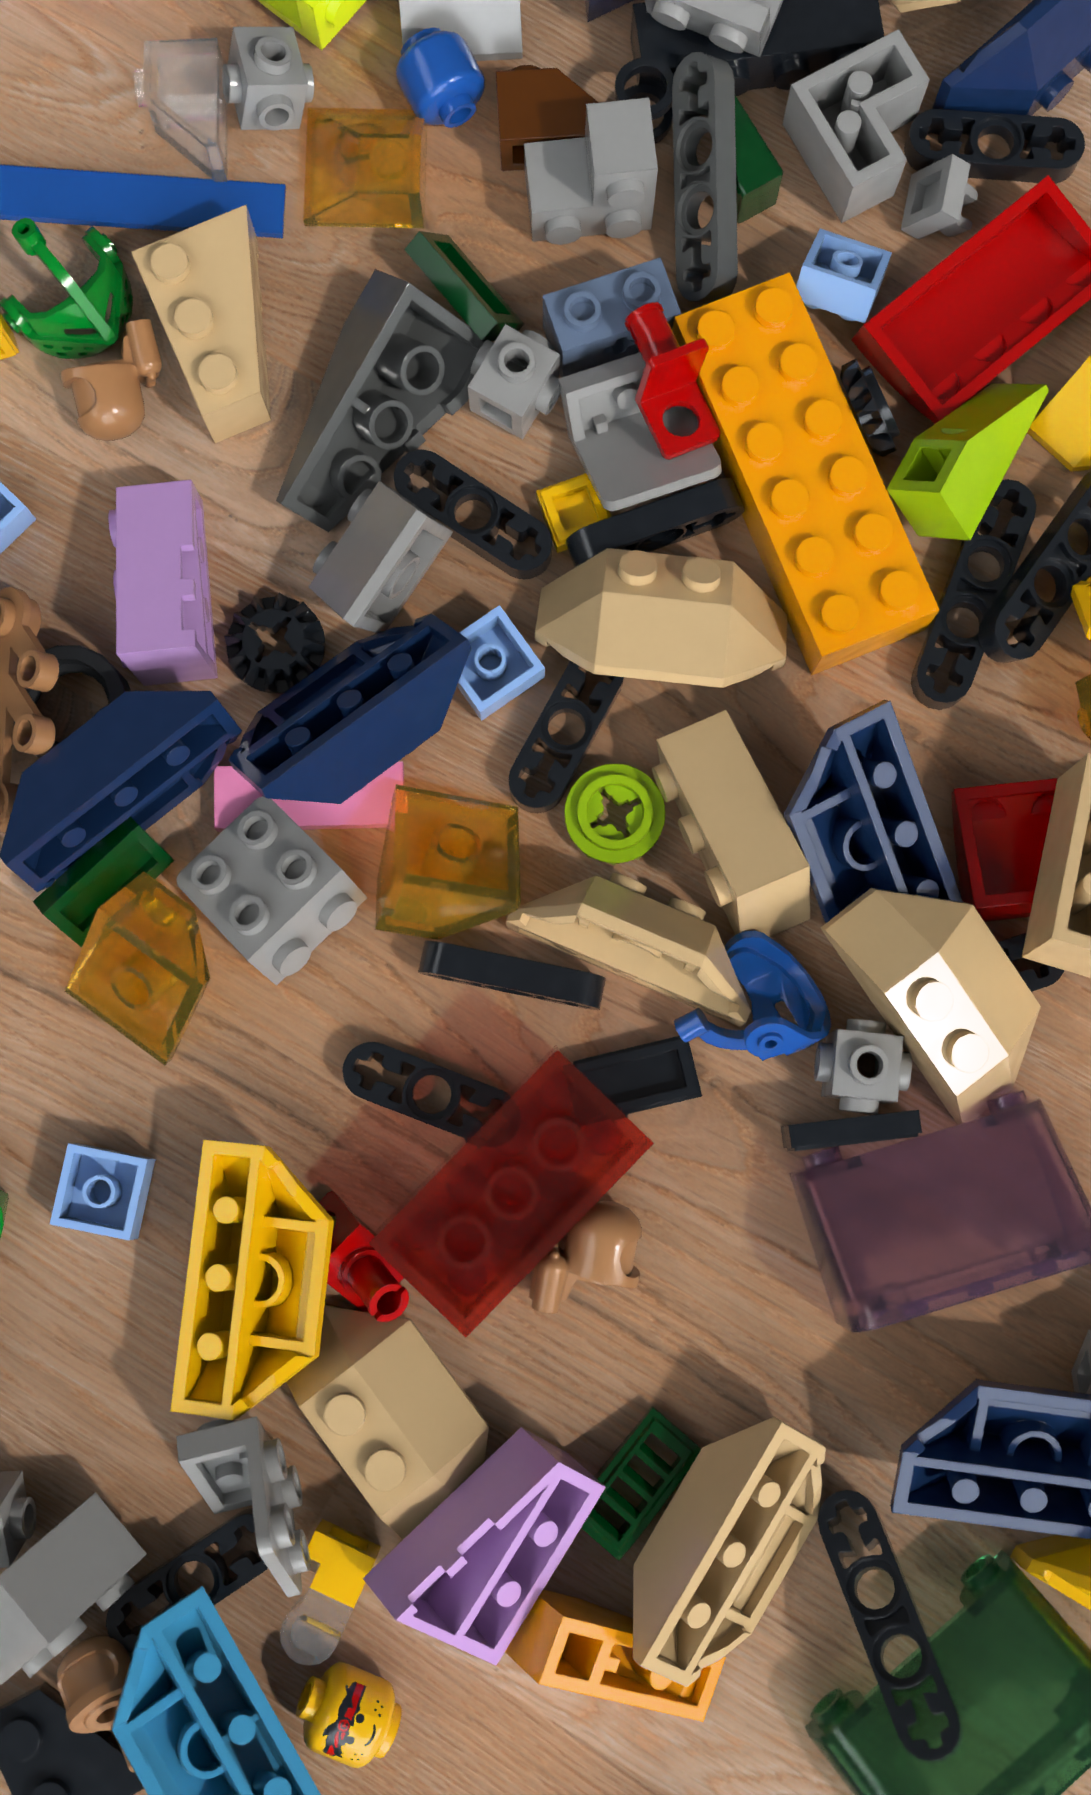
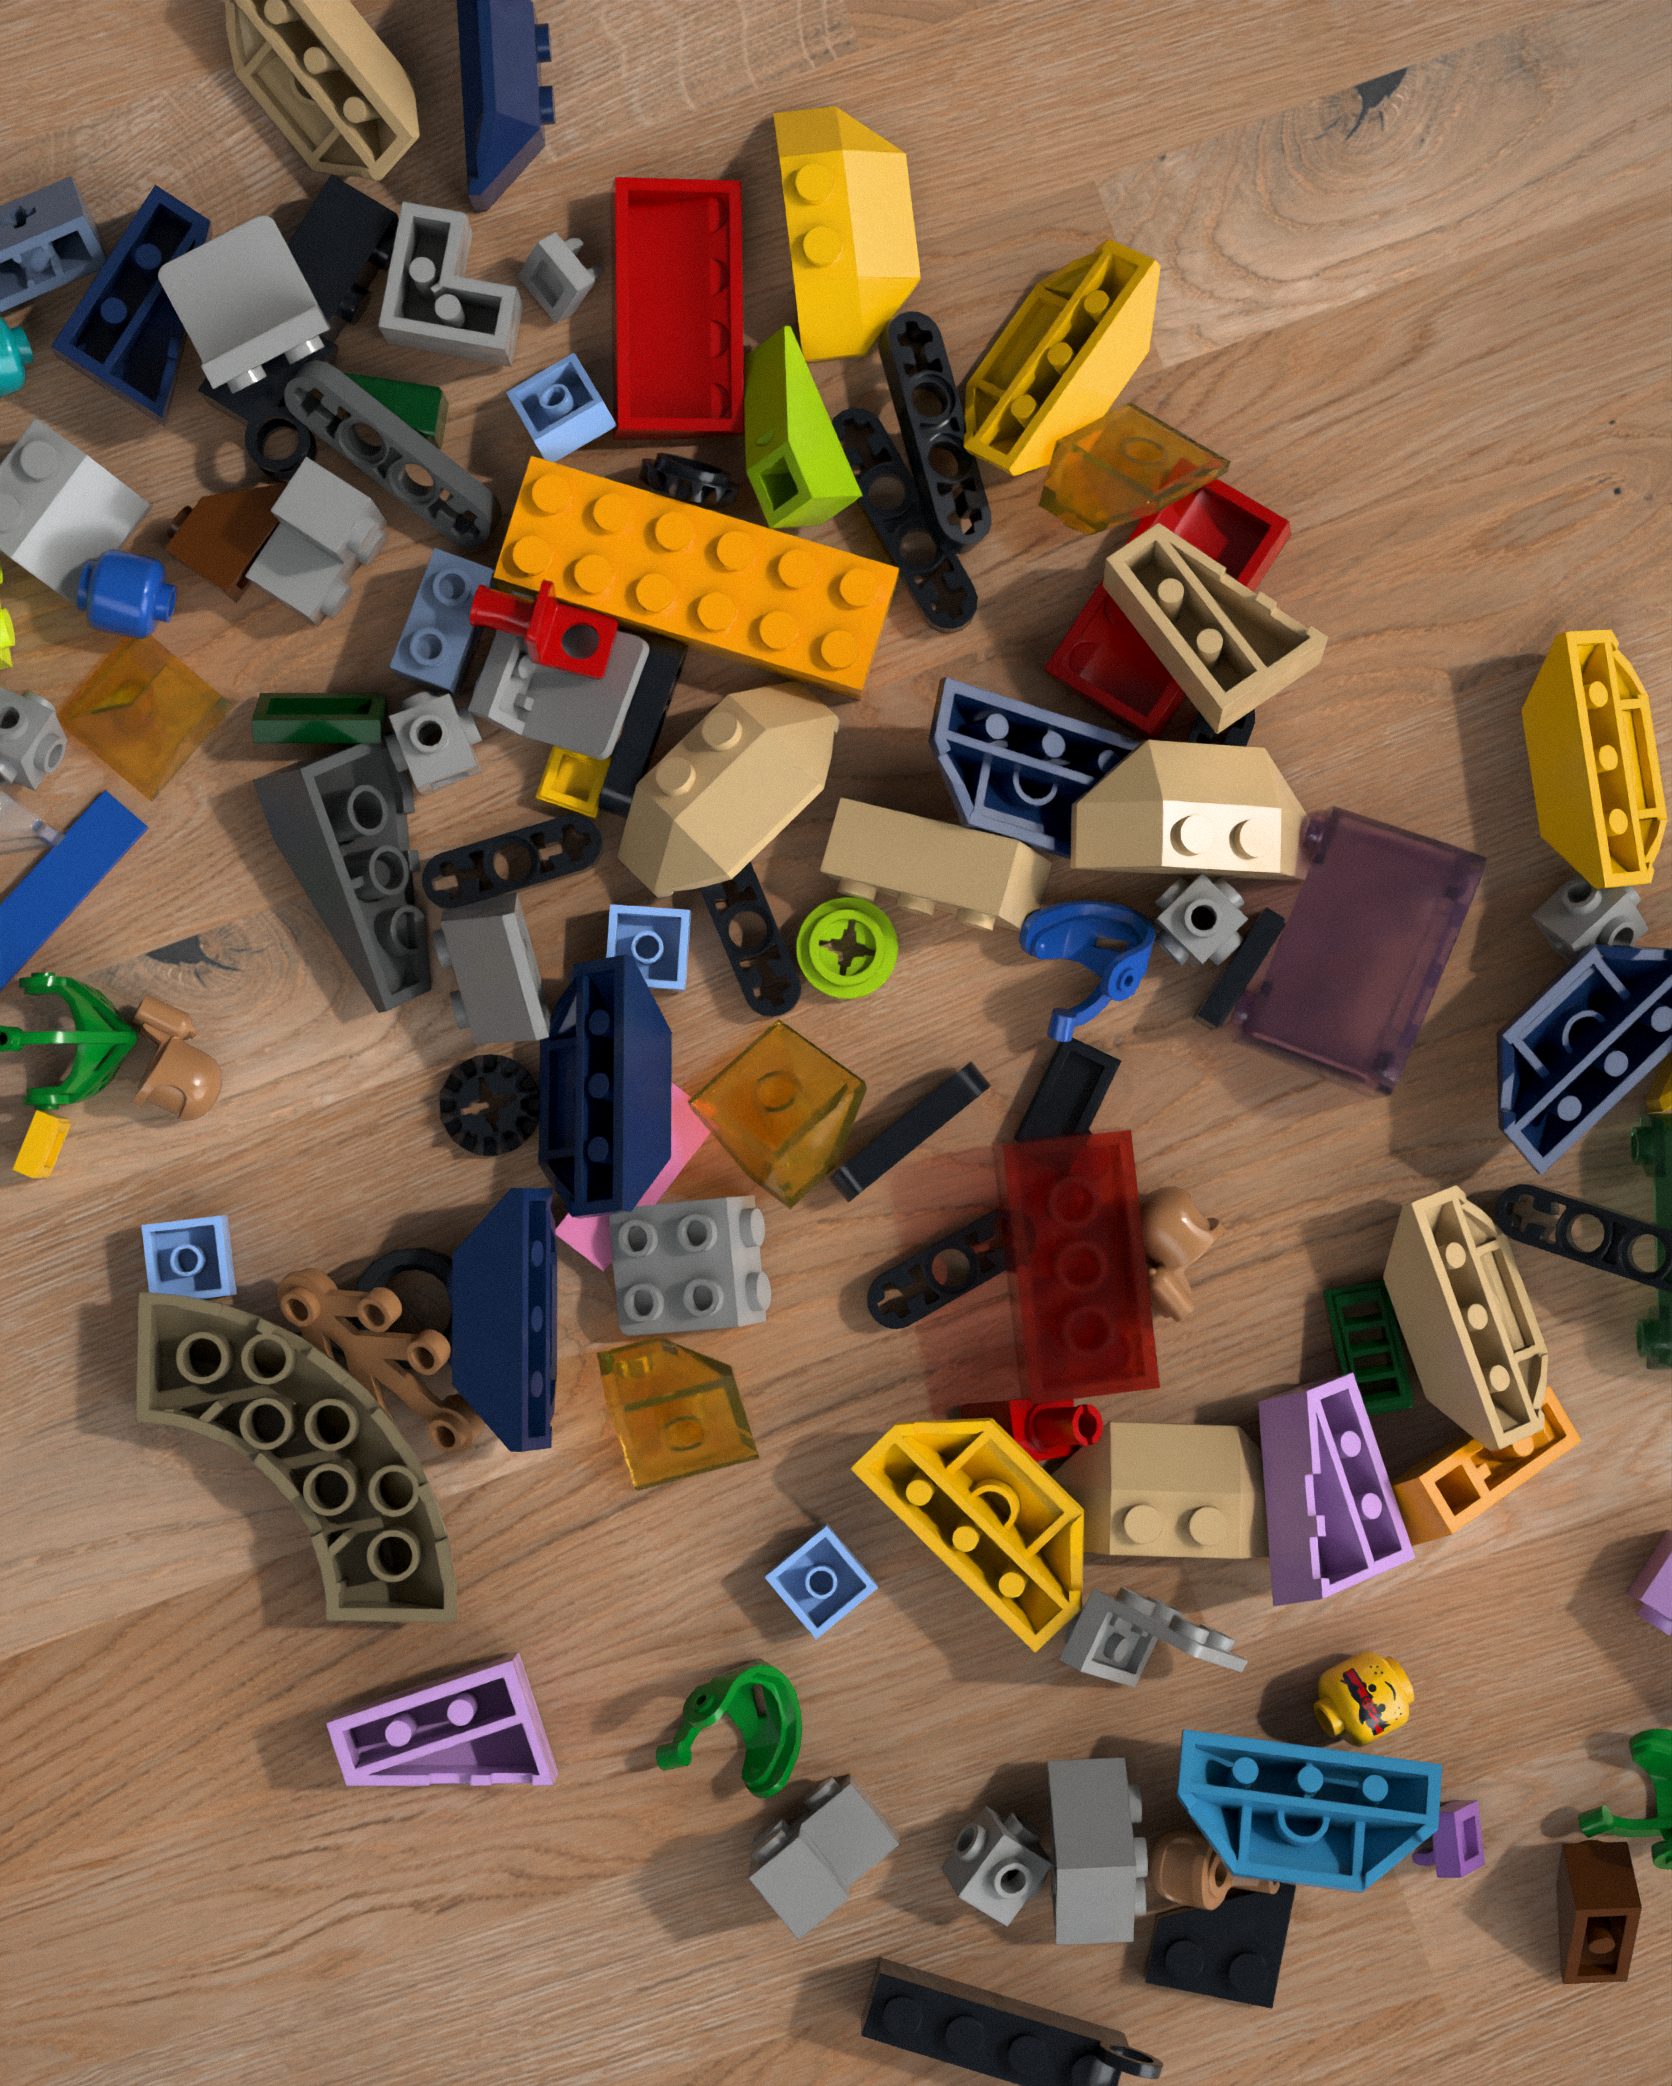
camera: 50 degrees left, 5 degrees up
(99, 876) = (577, 1392): dark green tile -> none
(146, 1591) = (1160, 1689): black beam -> none
(162, 583) = (371, 1155): lavender wedge -> none
(212, 313) = (179, 942): tan wedge -> none
(321, 1615) = (1276, 1664): leg -> none
(638, 940) = (964, 1010): tan wedge -> none
(1013, 128) = (591, 166): black beam -> none

